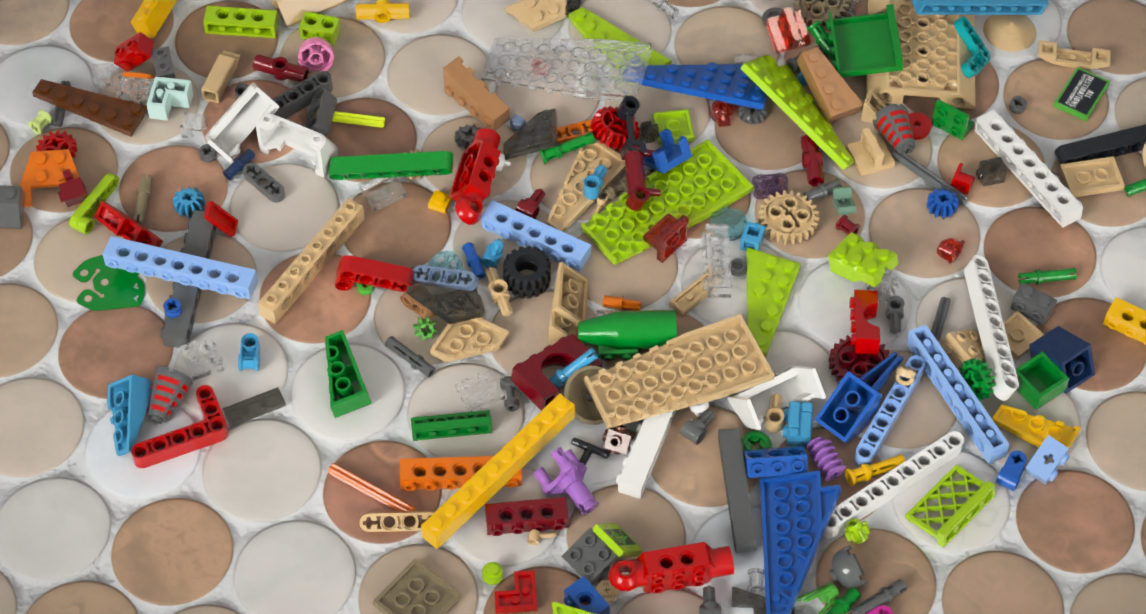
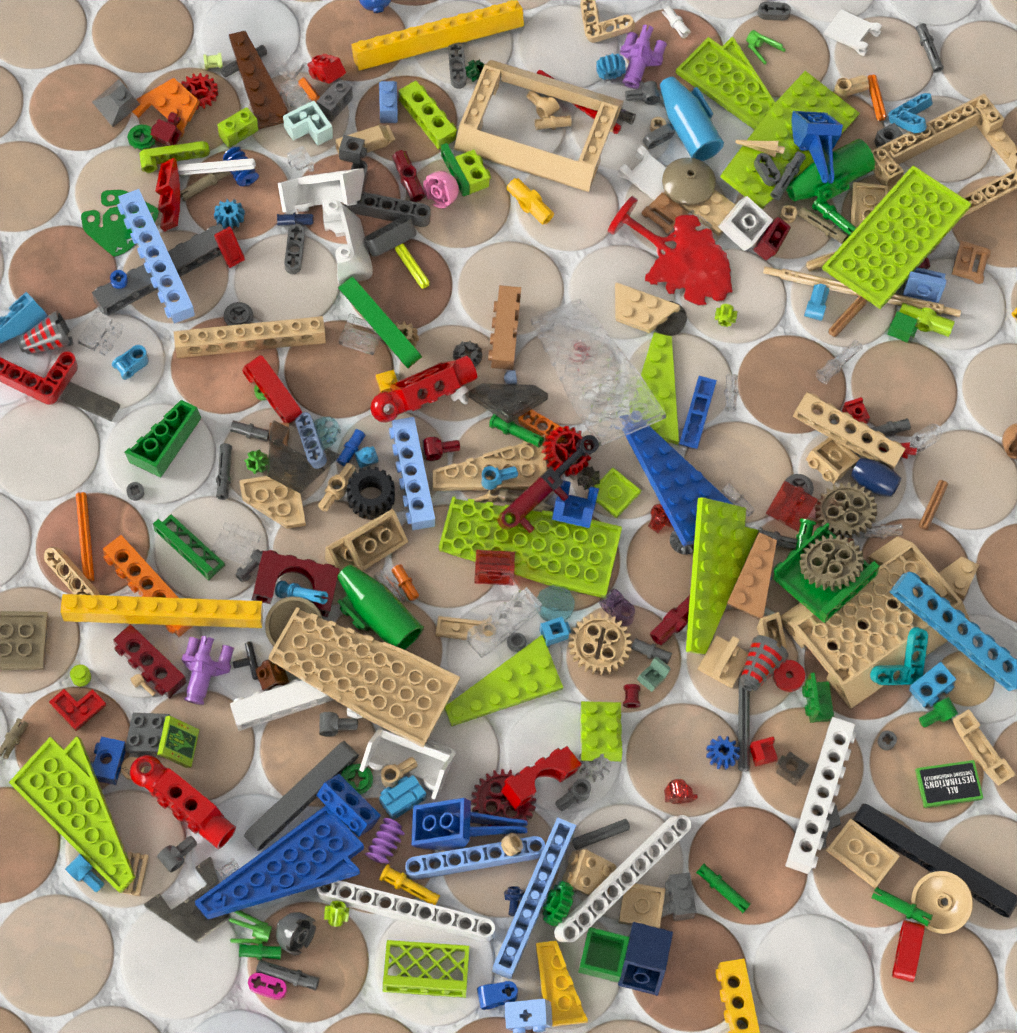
camera: 45 degrees right, 10 degrees up
(54, 207) = (135, 134): none -> green gear
(118, 144) = (237, 127): none -> lime brick
(142, 177) = (213, 167): none -> white axle
(155, 167) = (242, 177): none -> blue piece
(203, 37) = (388, 102): none -> medium blue brick
(225, 81) = (346, 149): none -> dark grey brick
(276, 254) = (238, 308): none -> dark grey gear
(299, 34) = (455, 169): none -> green tile
(369, 425) = (129, 491): none -> dark grey bush
(392, 316) = (249, 430): none -> dark grey pin
(658, 33) = (697, 412): none -> blue slope
(850, 34) = (831, 562): none -> dark tan gear
(940, 407) = (514, 895): none -> dark blue plate
(999, 48) = (929, 682): none -> dark azure brick
(1025, 58) = (941, 711): none -> green axle

